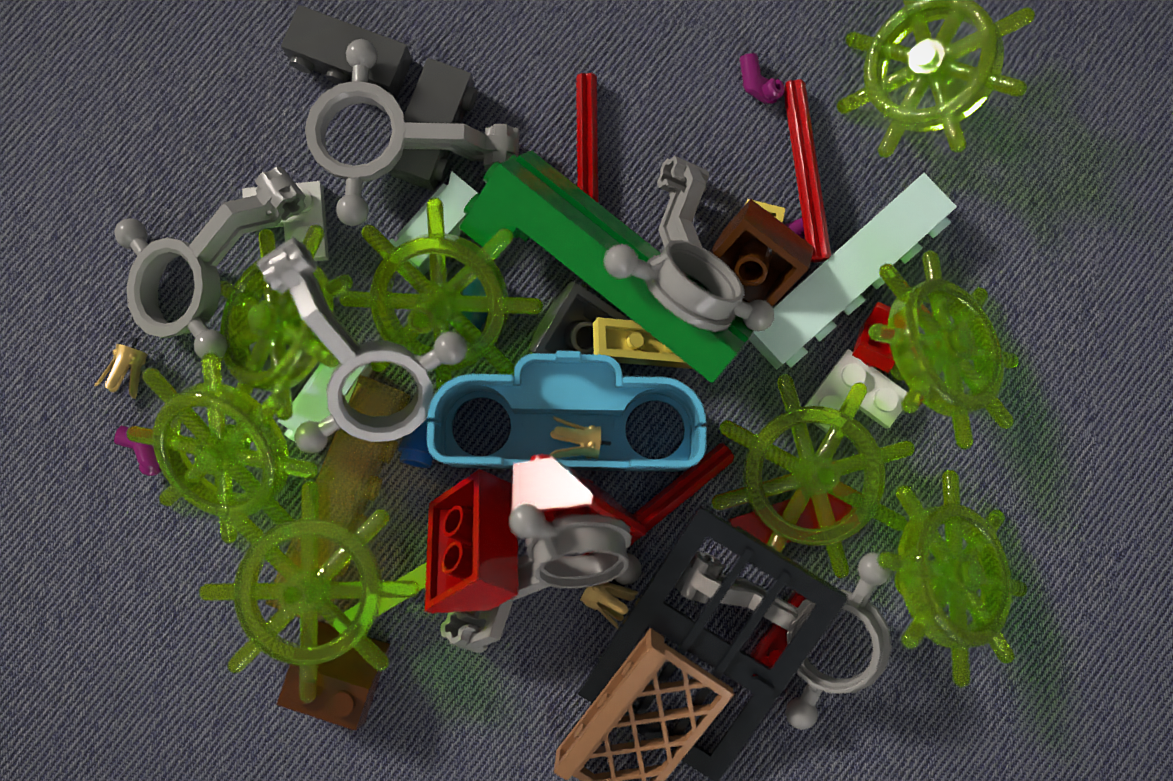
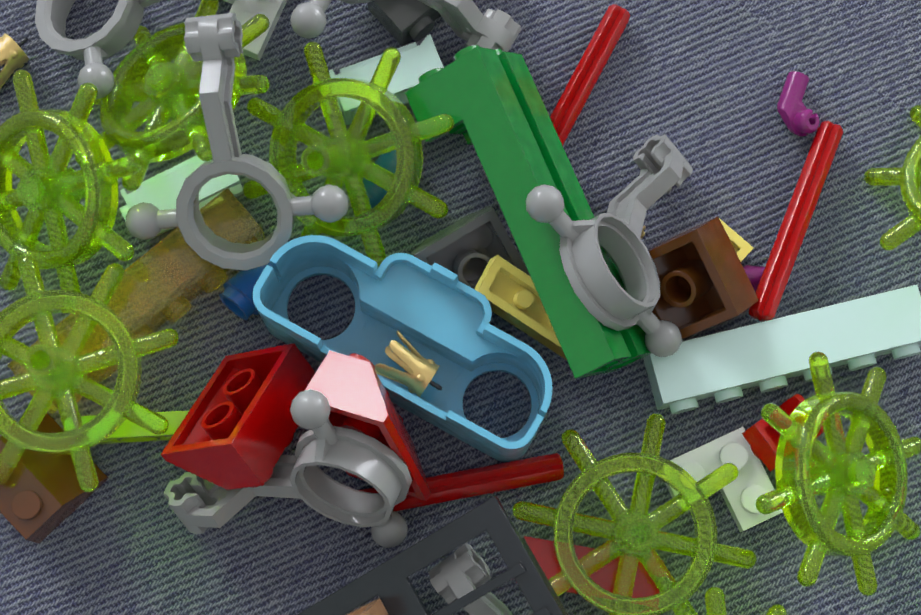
camera: 25 degrees right, 5 degrees down
(602, 599) = (351, 548): pearl gold piece -> none

